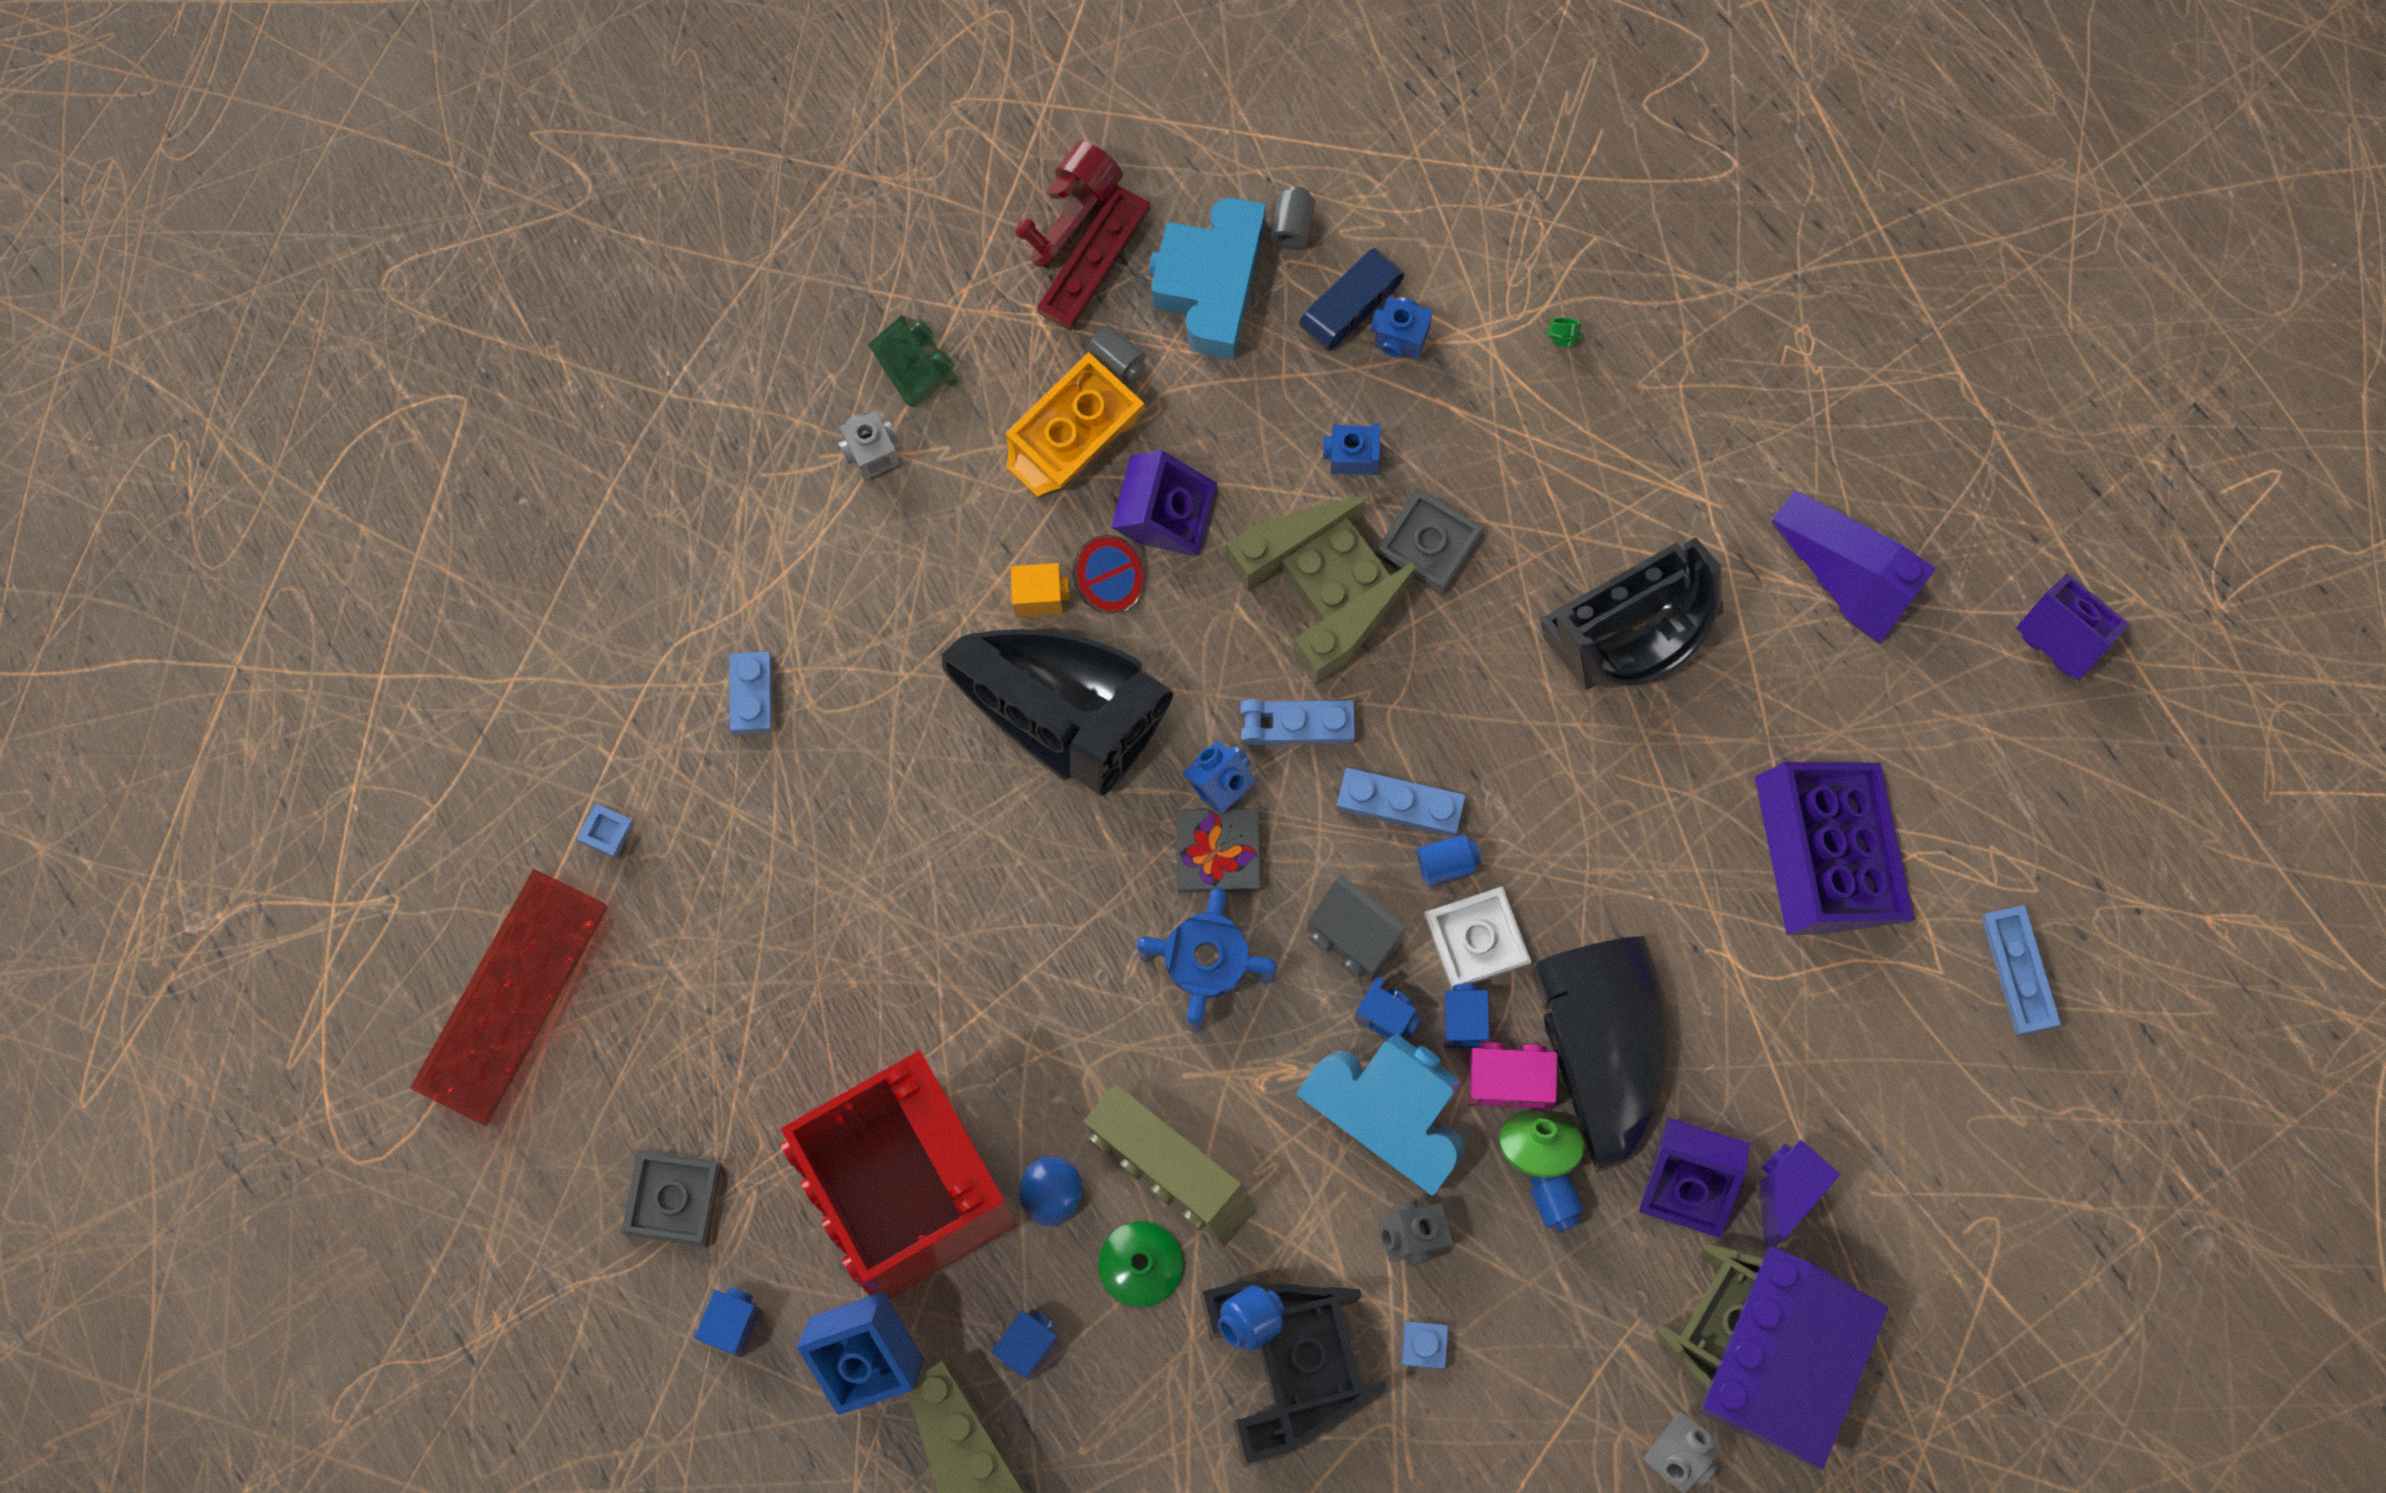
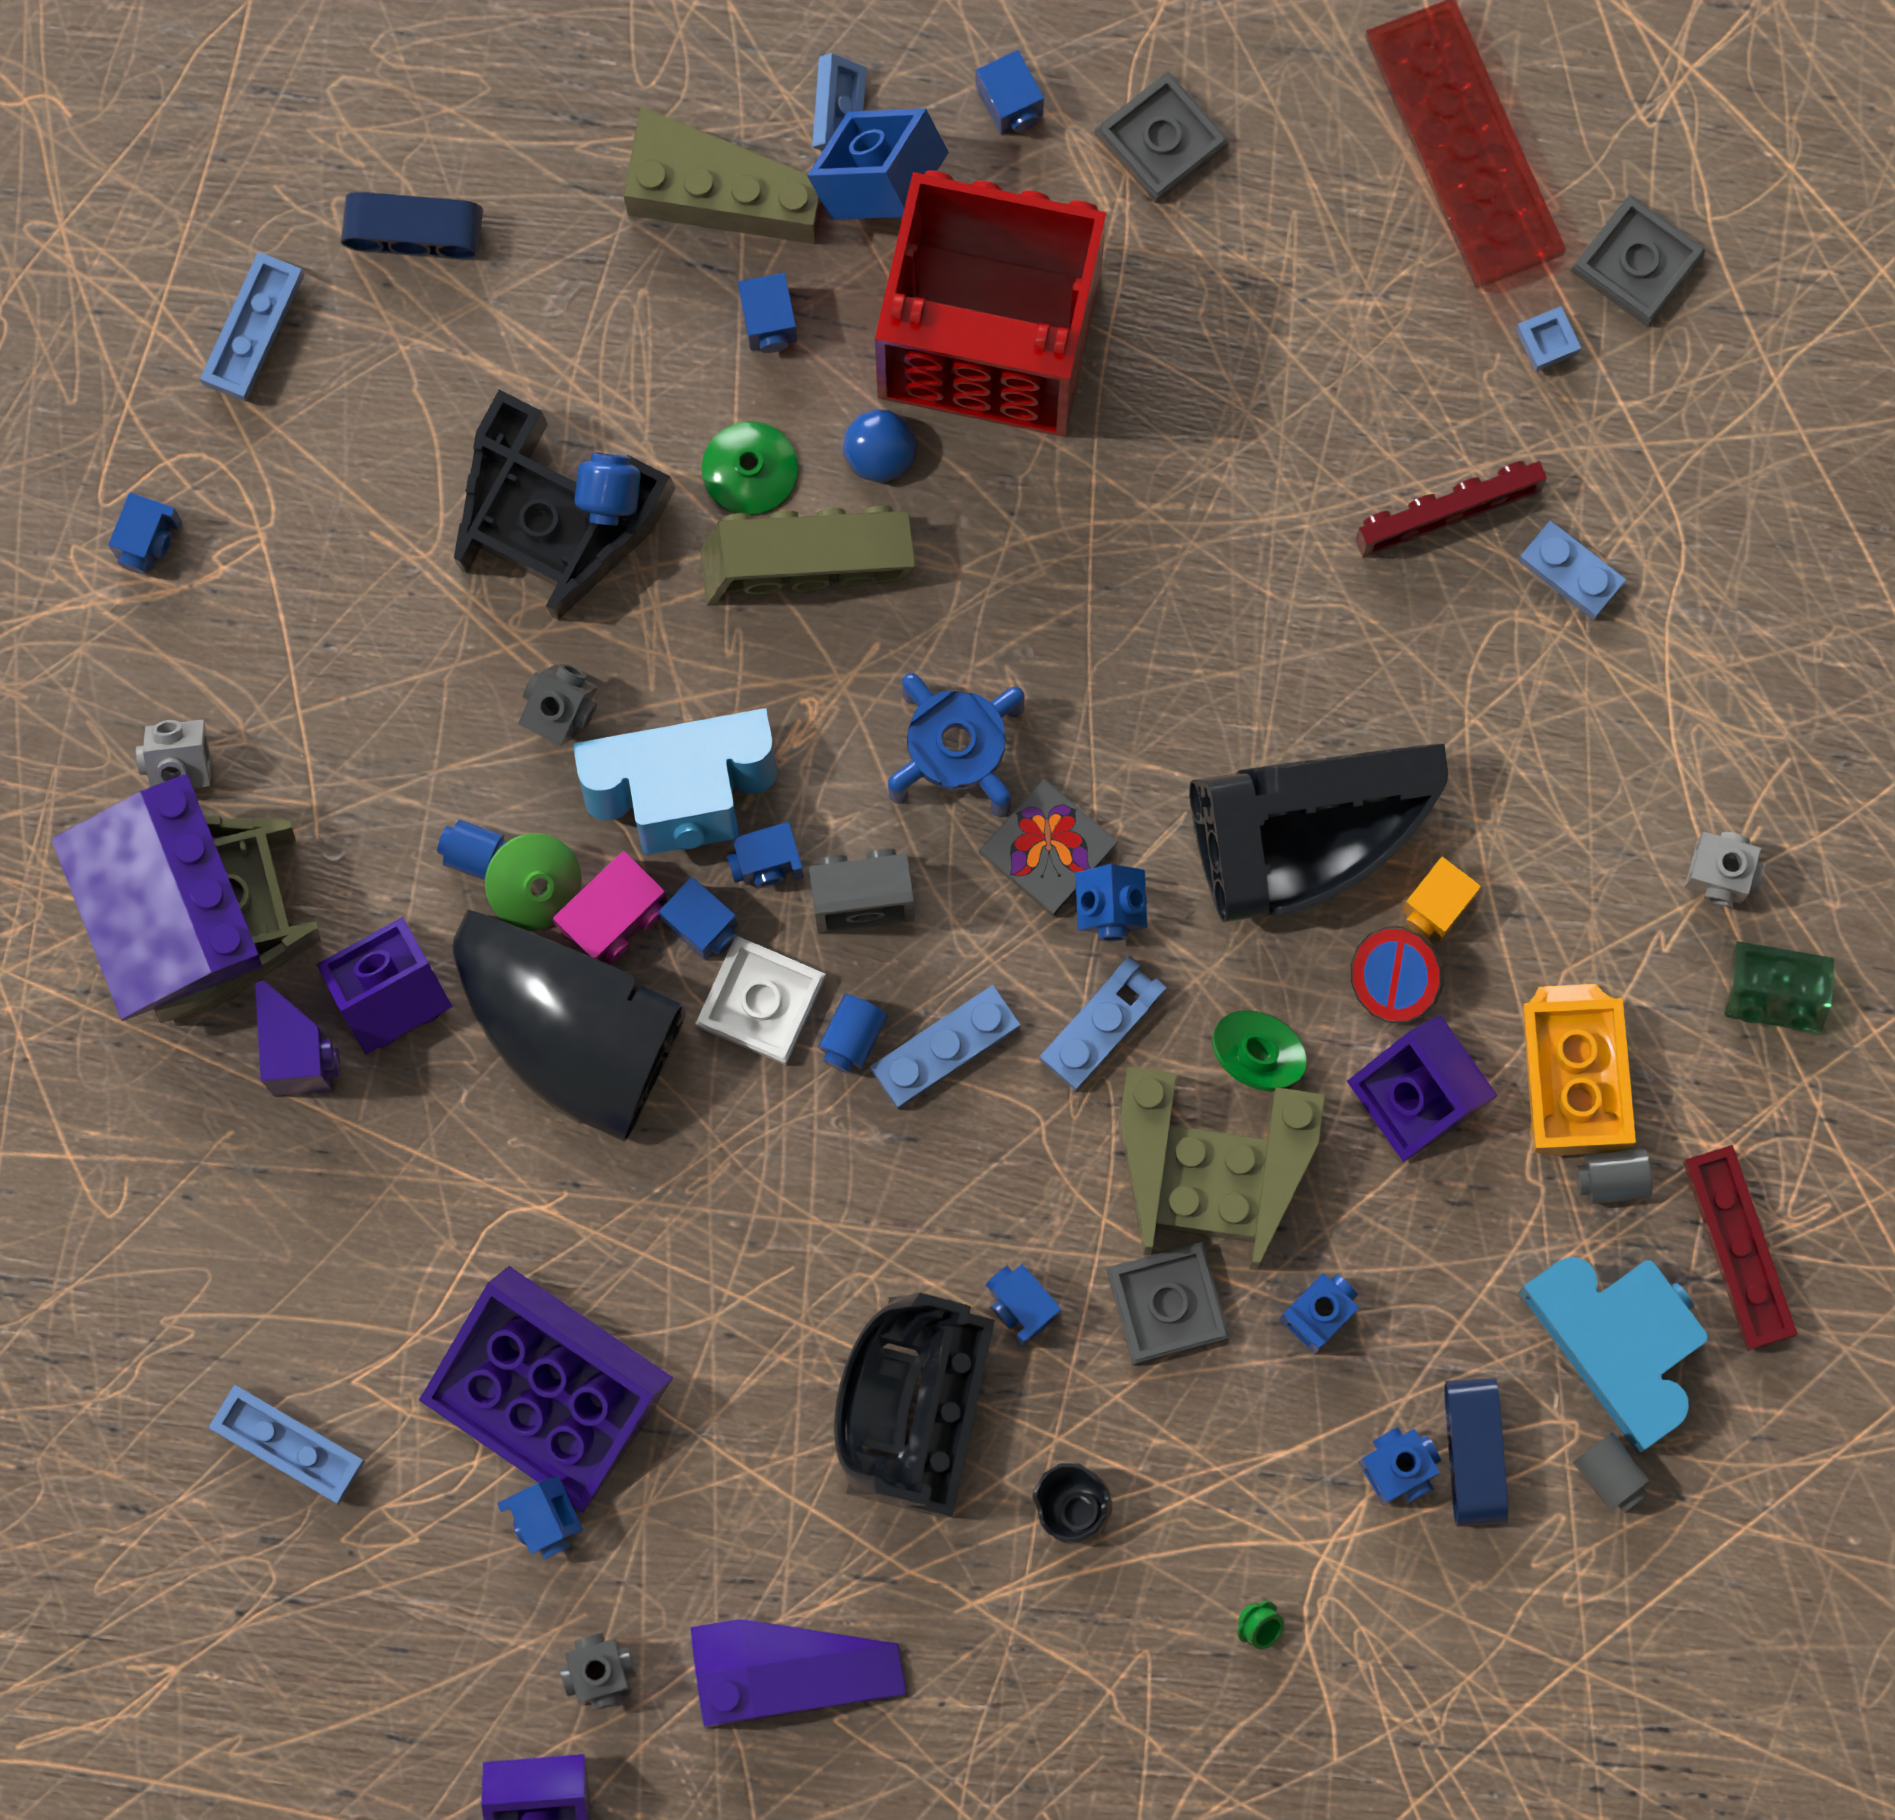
camera: 130 degrees right, 5 degrees up
(501, 824) = (1638, 260): none -> dark grey tile
(789, 802) = (1467, 501): none -> dark red plate
(833, 1435) = (838, 92): none -> medium blue plate
(1087, 175) = (1820, 1313): dark red piece -> none
(1219, 609) = (1259, 1050): none -> green dish
(1424, 1345) = (463, 636): medium blue plate -> none
(1511, 616) = (1022, 1302): none -> blue brick
(1600, 485) = (1072, 1503): none -> black hair
(1909, 777) = (543, 1517): none -> blue brick
(1963, 663) = (607, 1690): none -> dark grey brick

